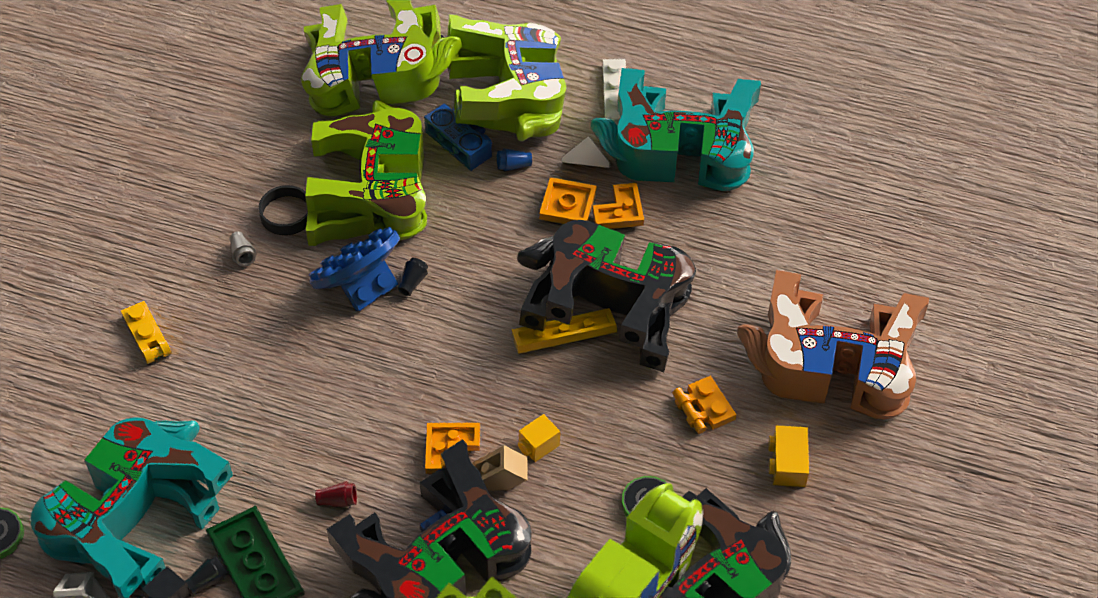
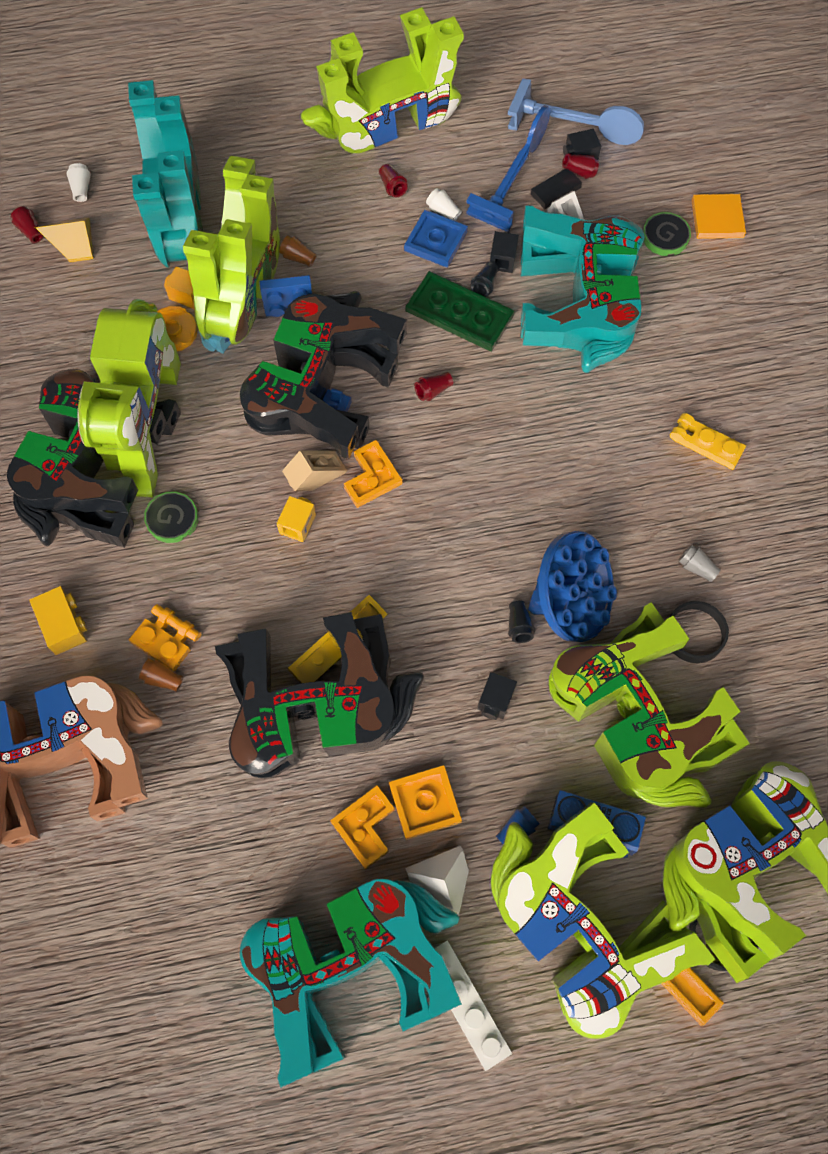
camera: 150 degrees right, 15 degrees up
(468, 237) = (496, 696): none -> black brick
(723, 375) = (160, 675): none -> dark orange cone

